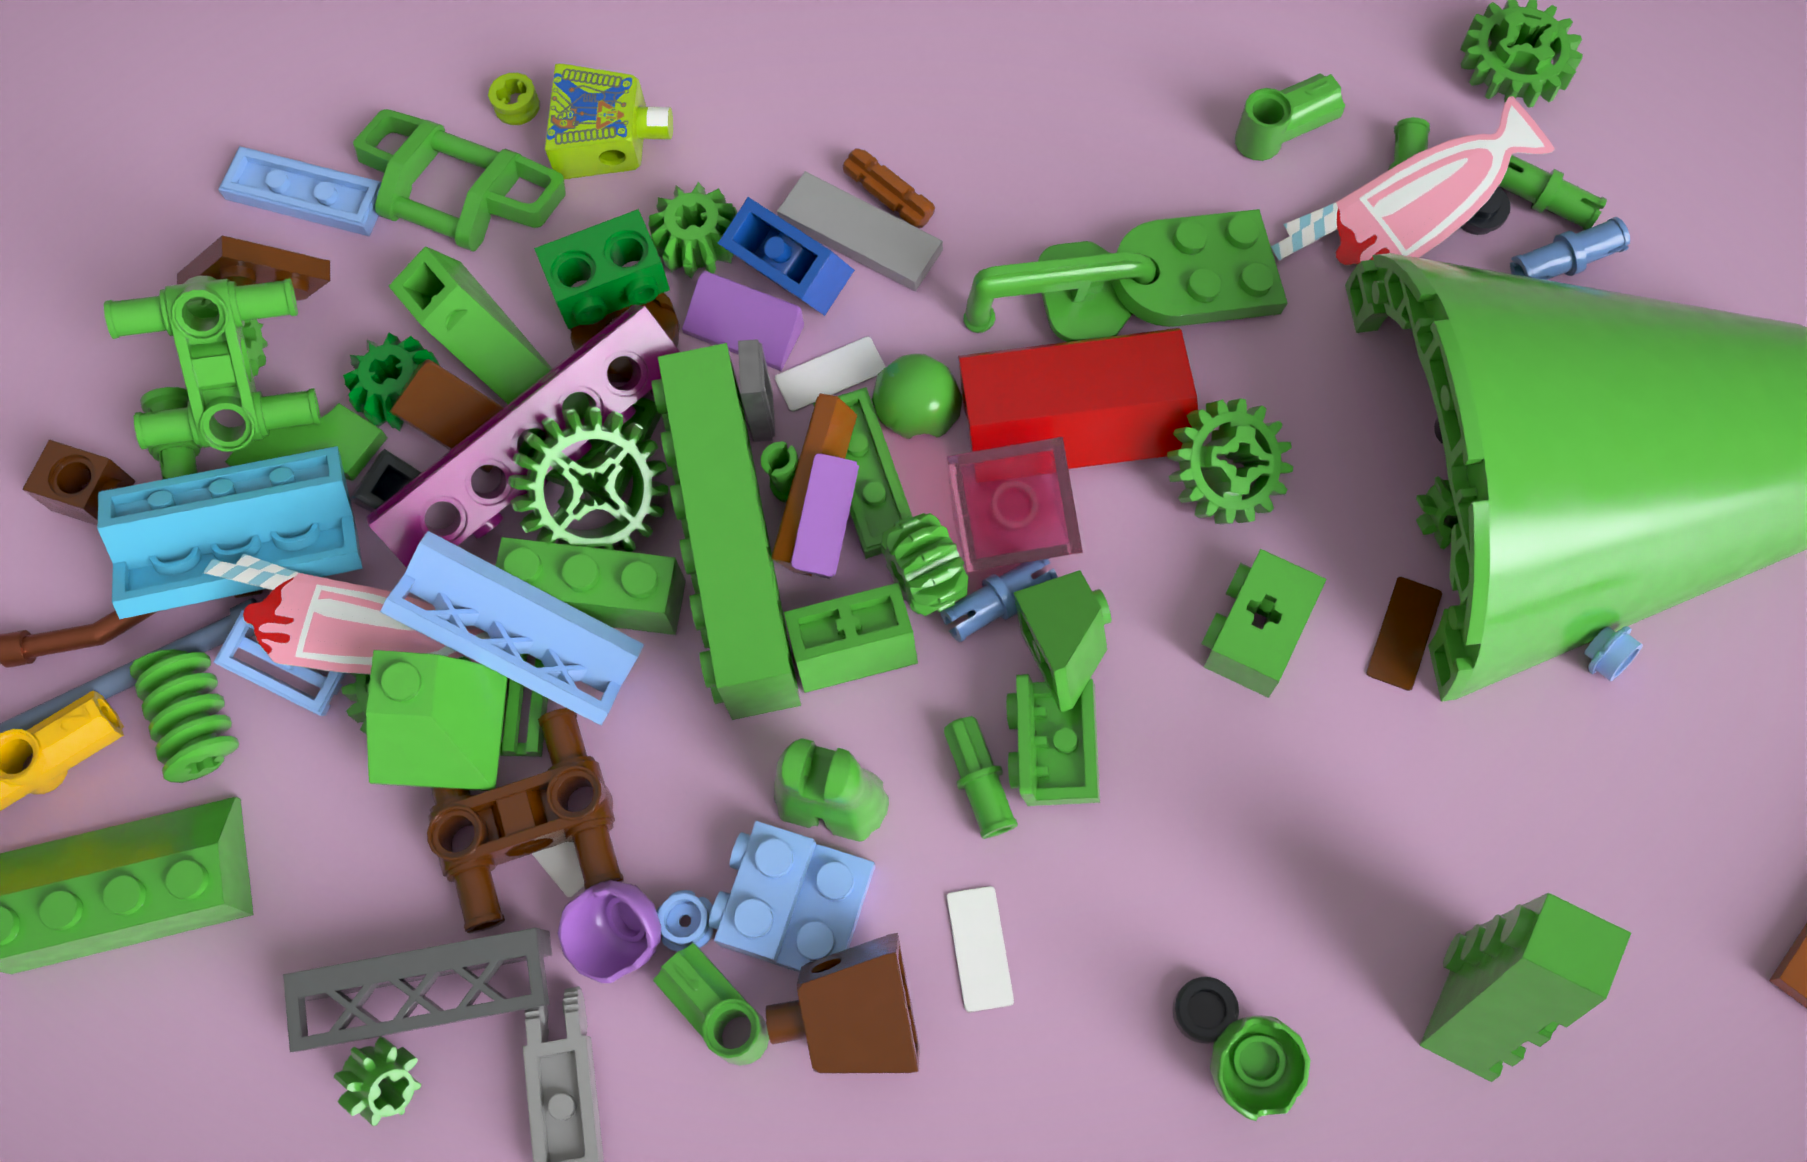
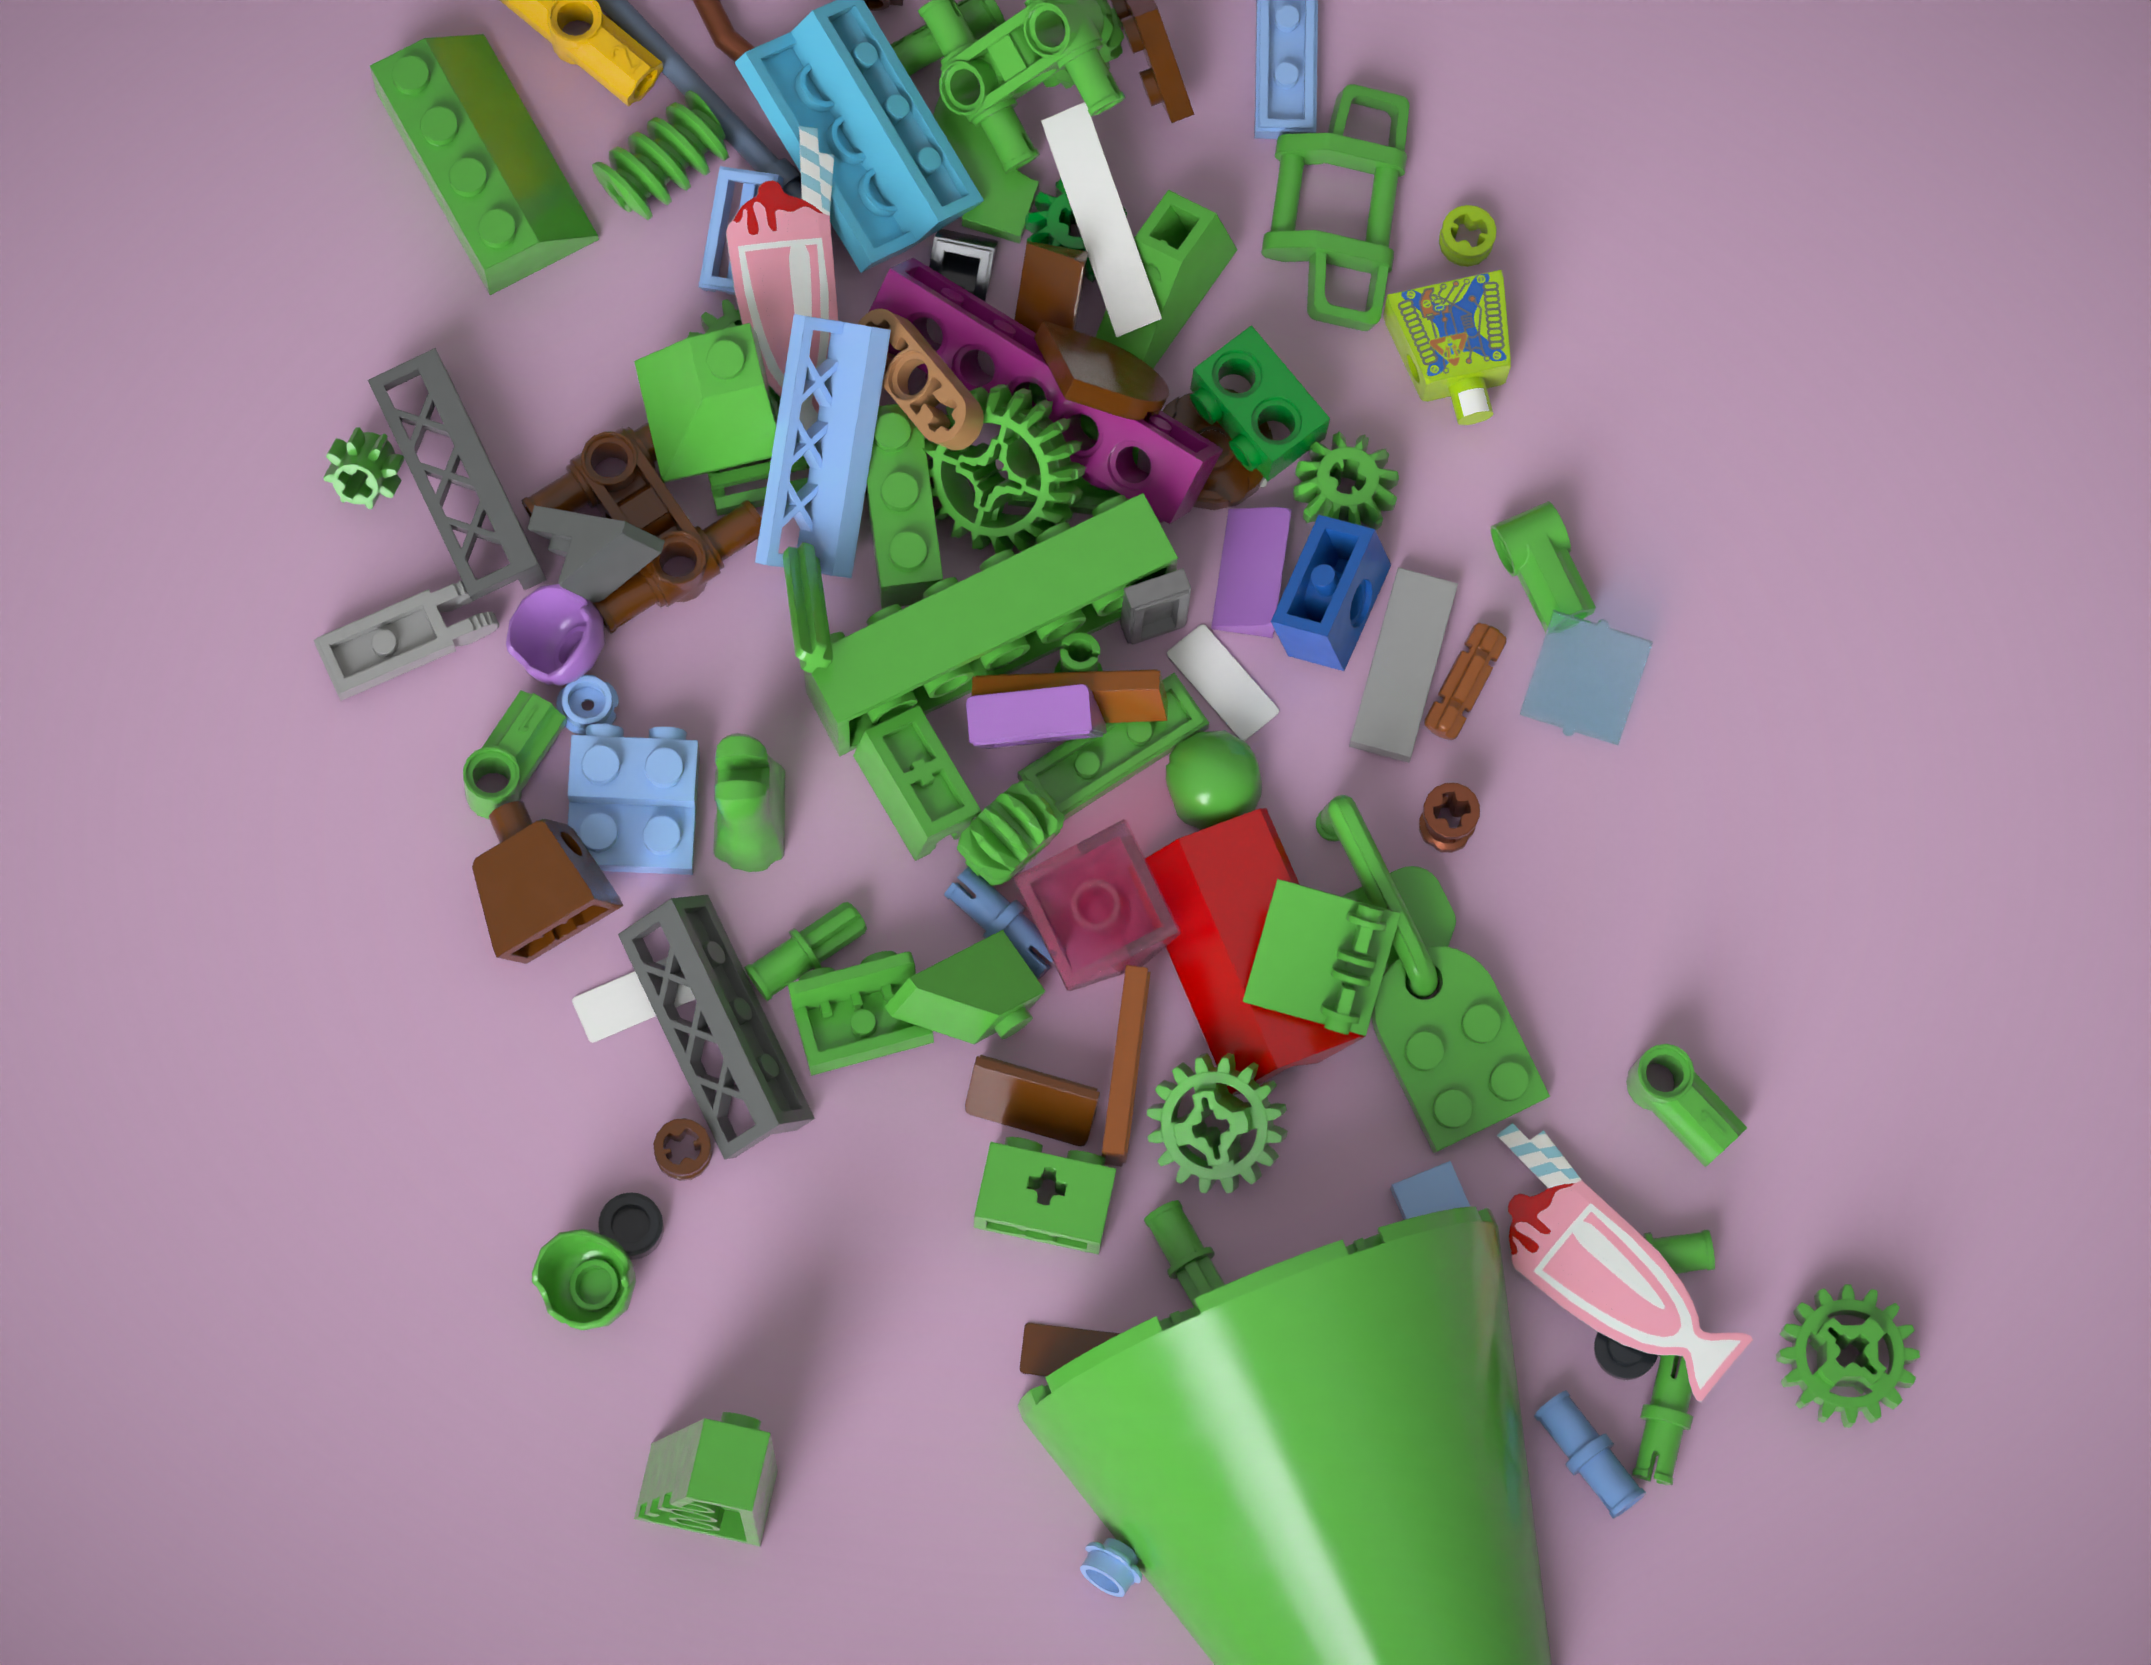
camera: 65 degrees right, 5 degrees up
(392, 346) = (1101, 219): none -> white sticker
(457, 520) = (940, 387): none -> medium nougat beam
(531, 376) = (1100, 373): none -> reddish brown tile
(542, 862) = (597, 550): none -> dark grey slope
(668, 675) = (807, 607): none -> bright green axle
(798, 107) = (1537, 551): none -> bright green piece
(914, 96) = (1585, 677): none -> clear light blue piece
(1004, 220) = (1462, 804): none -> copper bush
(1028, 858) = (734, 1018): none -> dark grey fence
(1114, 330) = (1321, 957): none -> bright green hinge
(1159, 526) = (1125, 1065): none -> dark orange tile
(1161, 941) = (677, 1130): none -> reddish brown bush
(1169, 614) = (1031, 1101): none -> reddish brown slope
(1329, 320) = (1429, 1192): none -> light blue tile
(1347, 518) = (1184, 1250): none -> bright green axle

